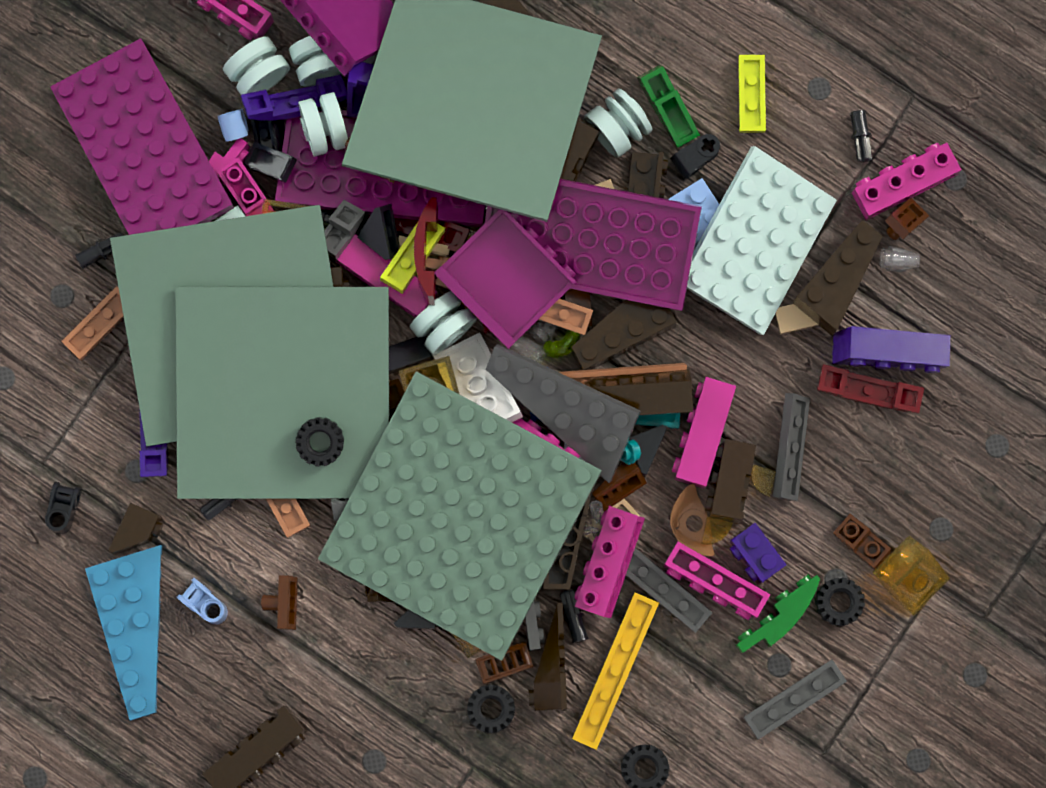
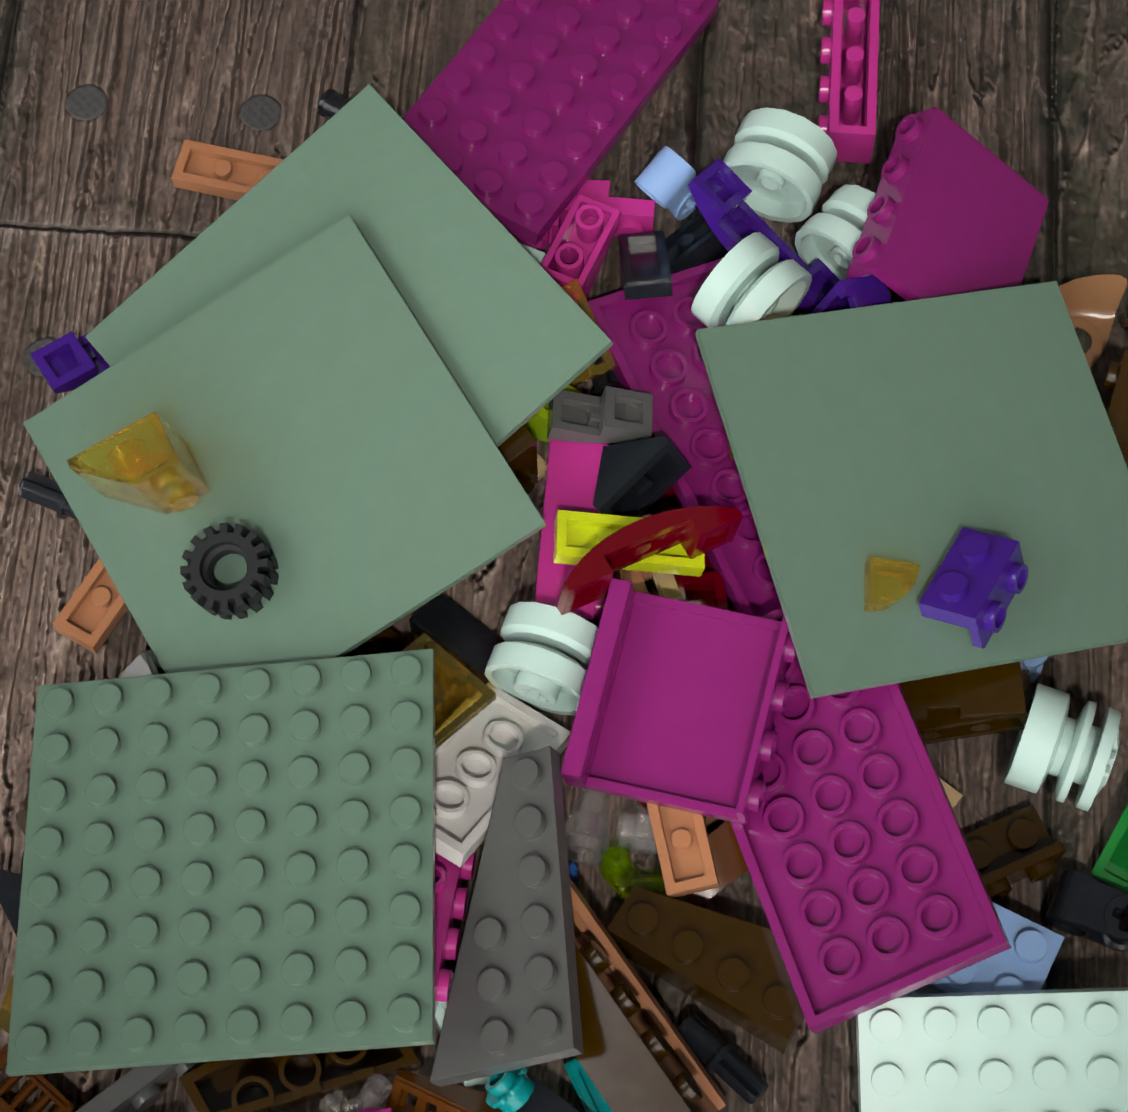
camera: 60 degrees right, 15 degrees down
(251, 450) = (143, 467): none -> clear yellow slope
(513, 155) = (887, 582): none -> clear yellow tile
(535, 117) = (976, 584): none -> dark purple bracket
(664, 354) = (721, 1058): none -> black axle

